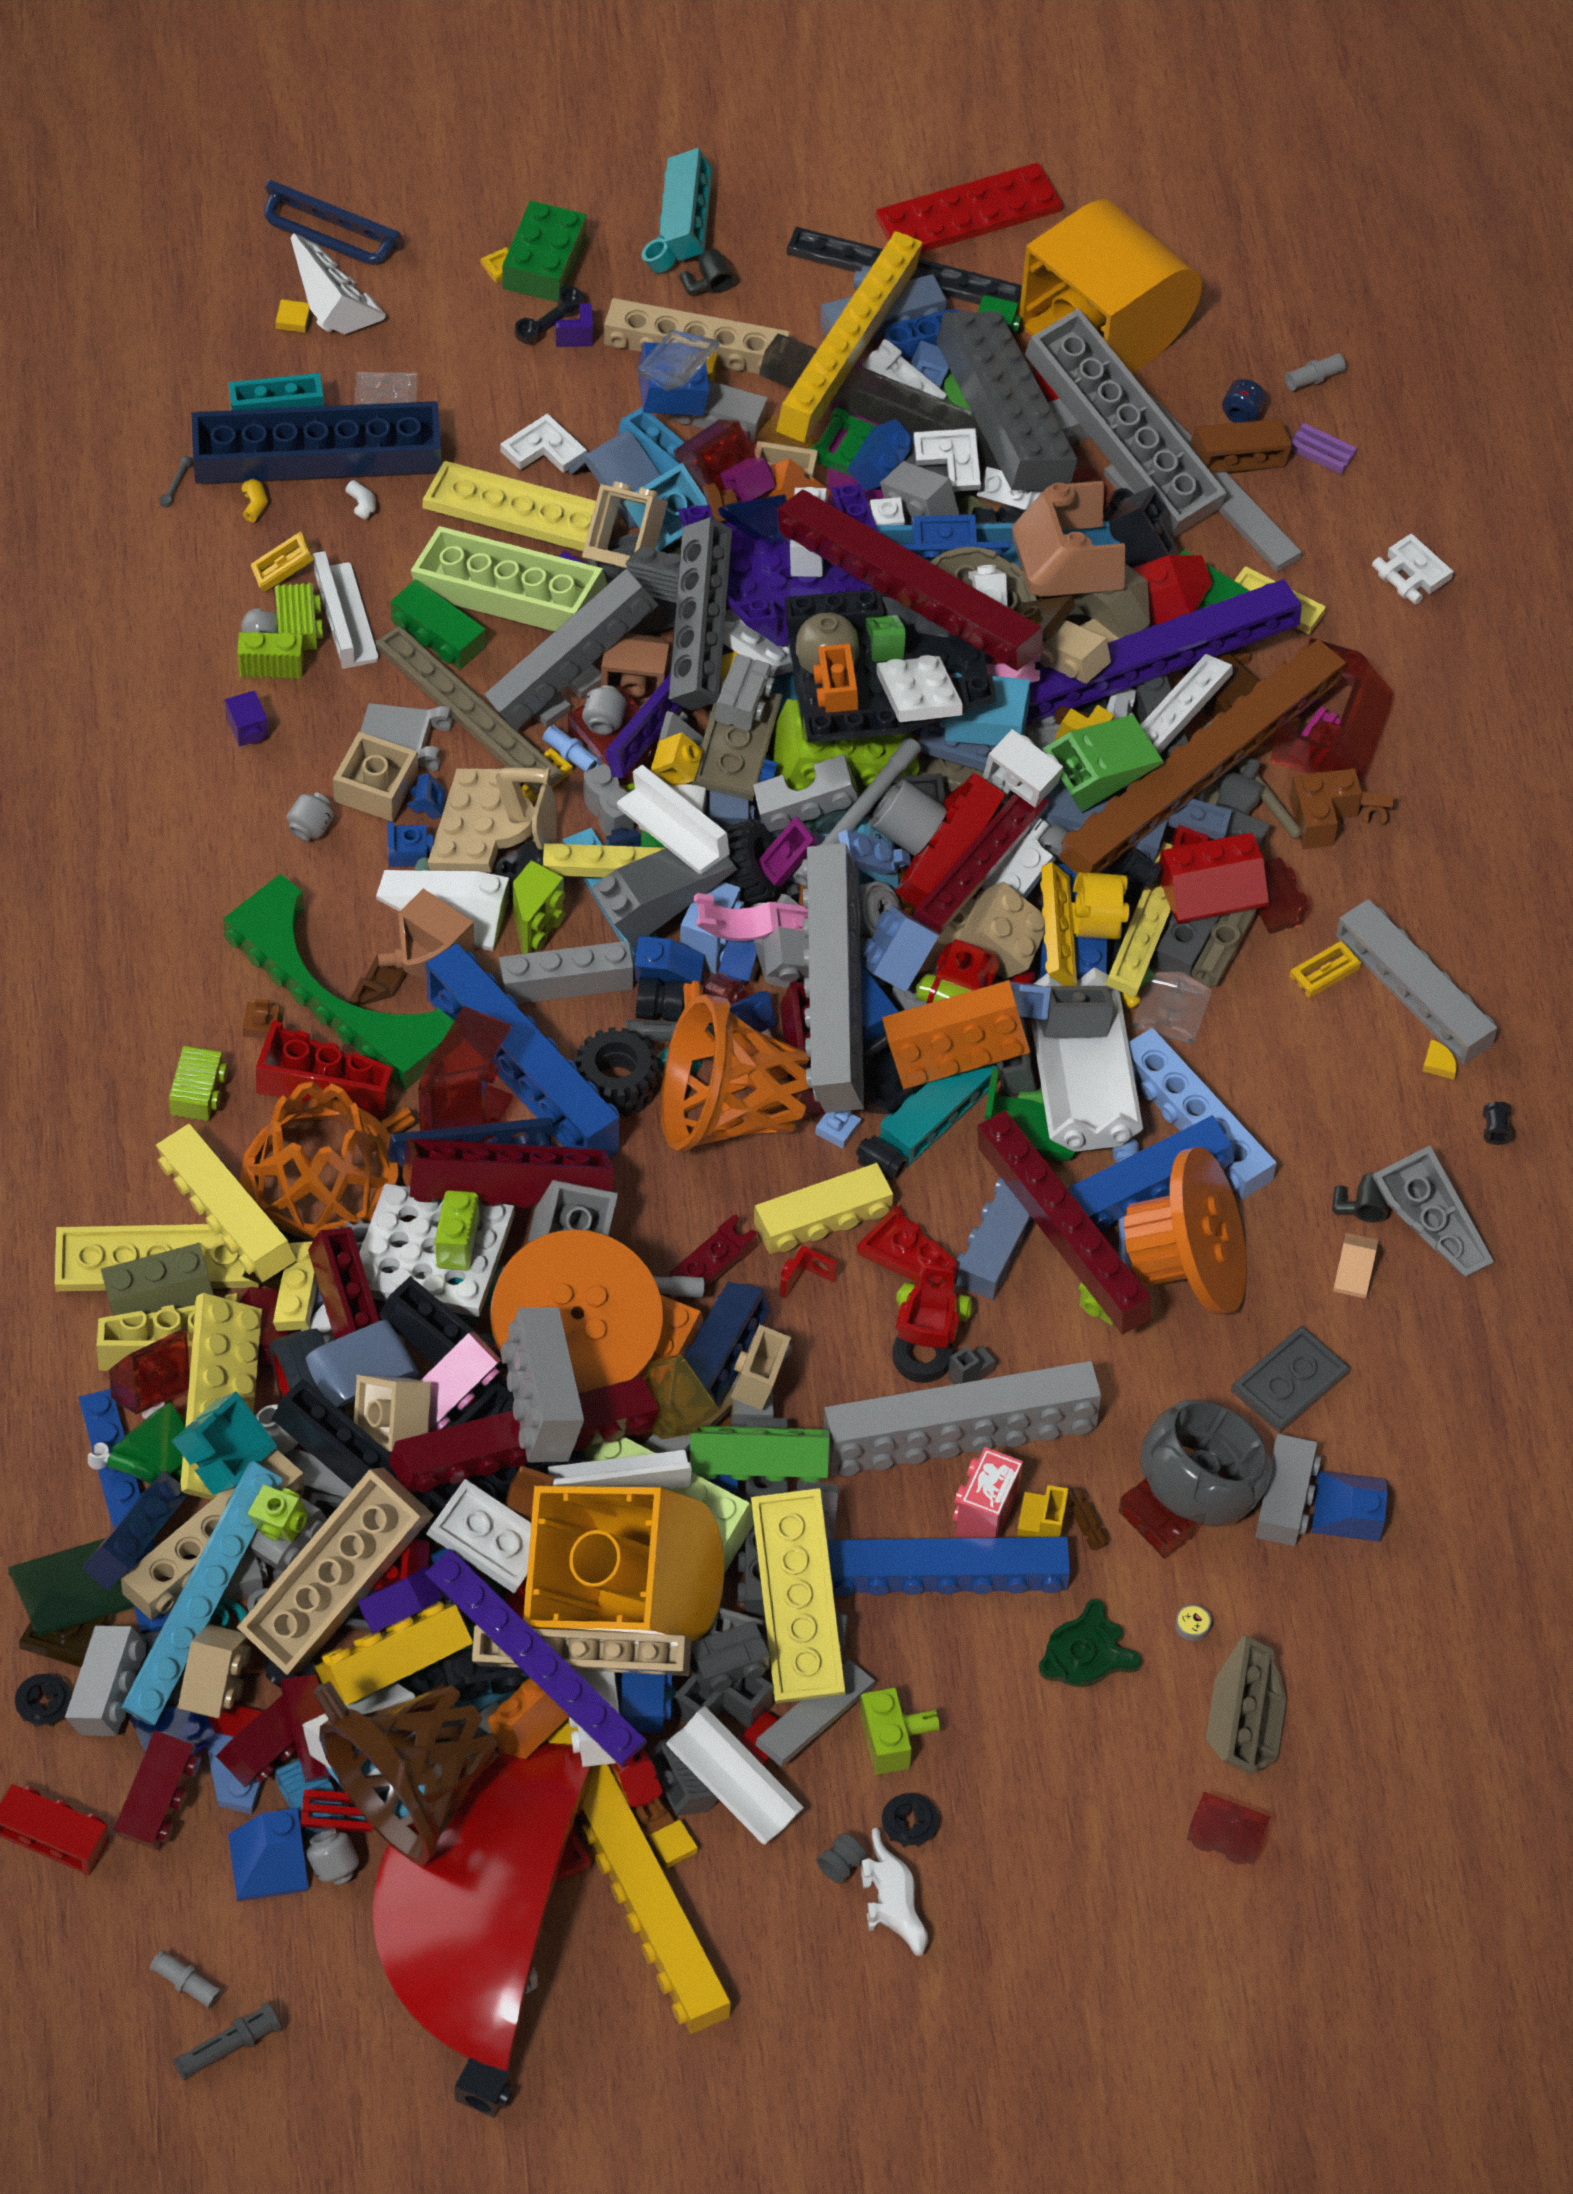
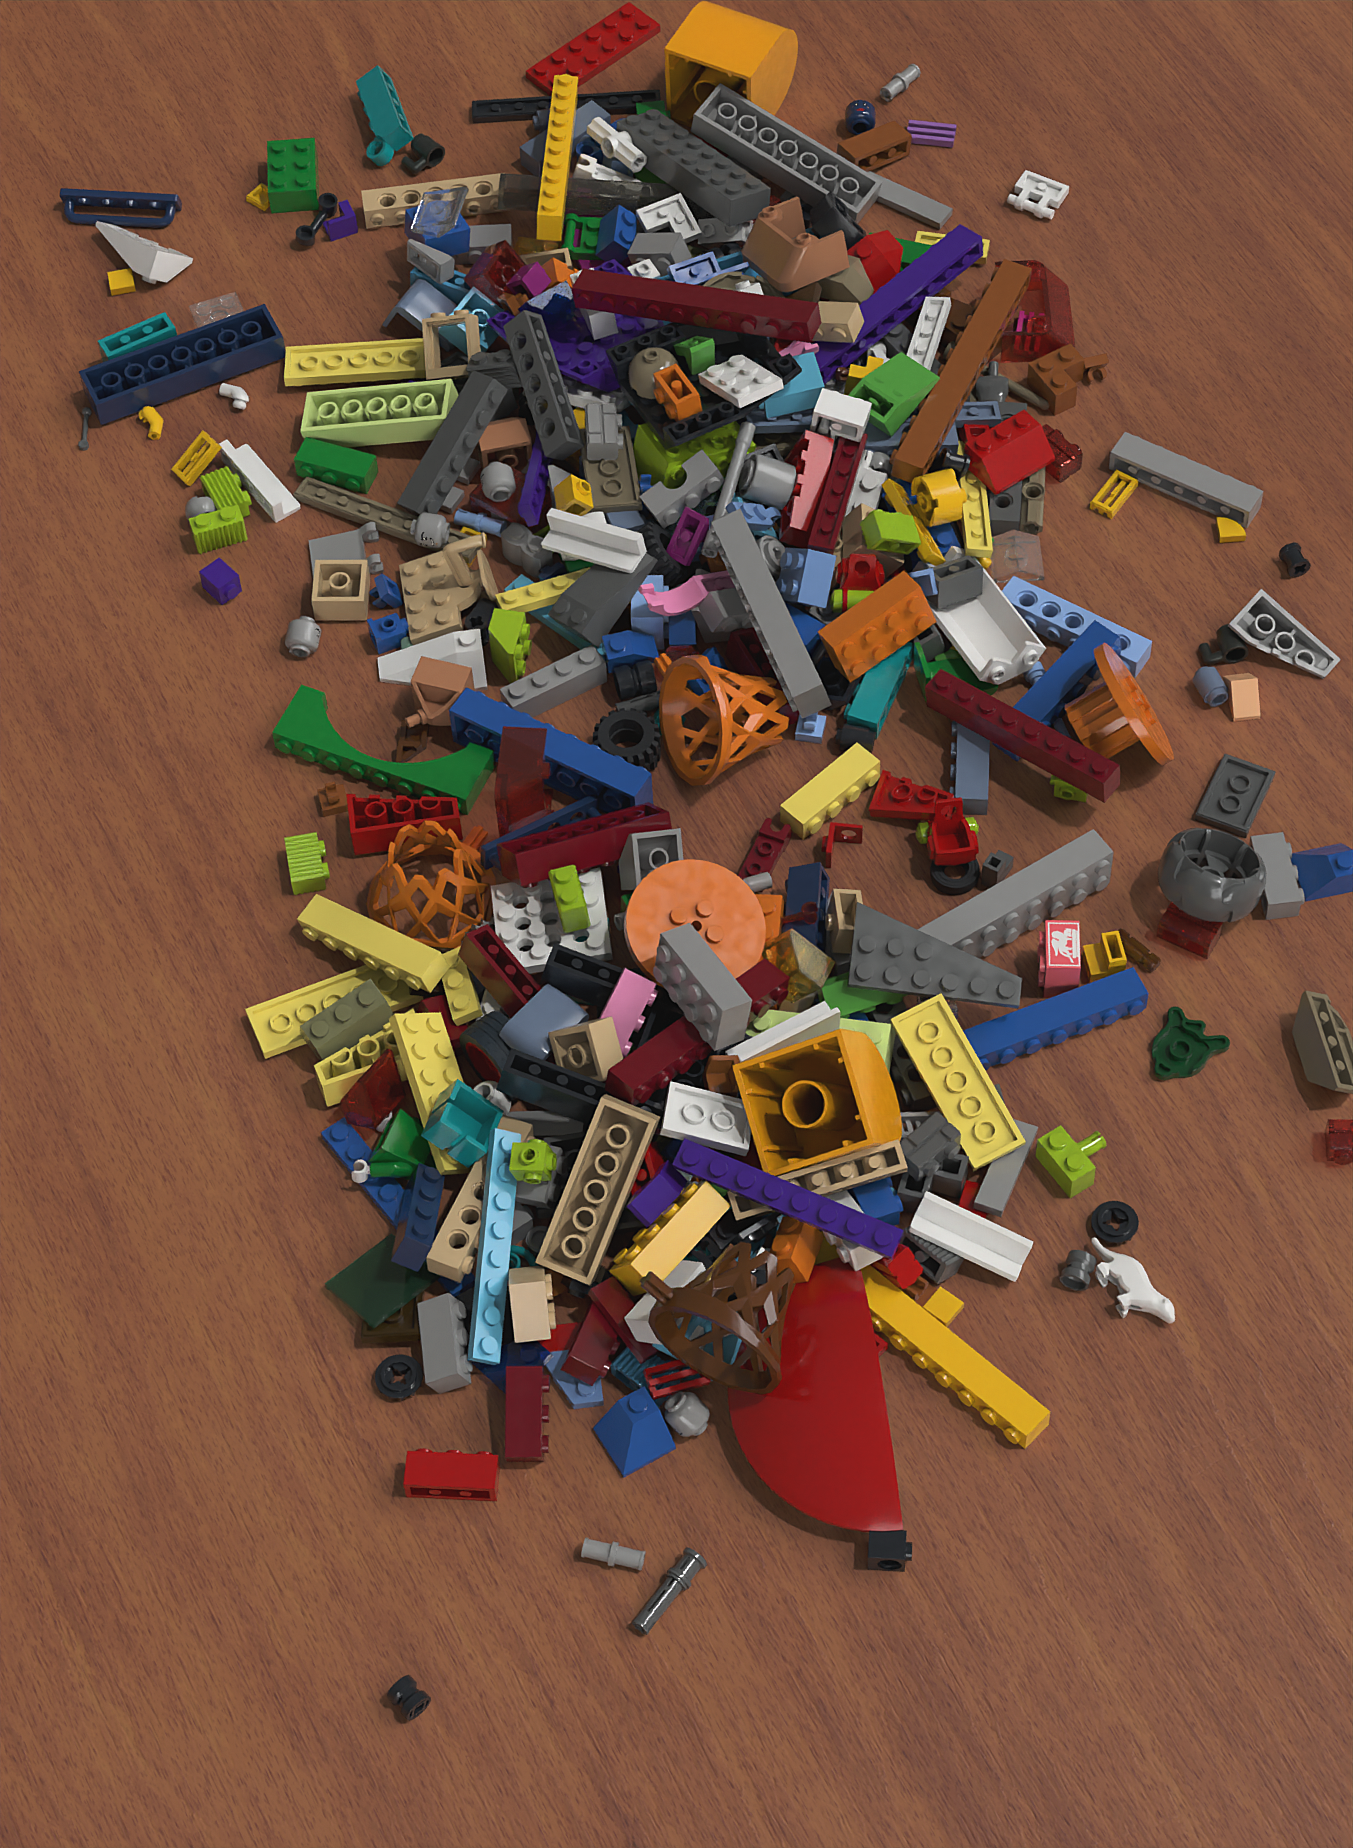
camera: 15 degrees left, 0 degrees up
(505, 740) = (430, 530): none -> light grey head
(546, 439) = (356, 307): white plate -> none
(648, 415) = (430, 261): none -> light grey slope
(717, 1341) = (808, 914): none -> clear red hand
(800, 1438) = (910, 962): none -> dark grey wing
(932, 341) = (616, 144): none -> white piece
(1020, 928) = (890, 532): none -> lime brick
(1193, 1623) = (1252, 998): tile -> none
(1323, 1240) = (1210, 686): none -> sand blue brick

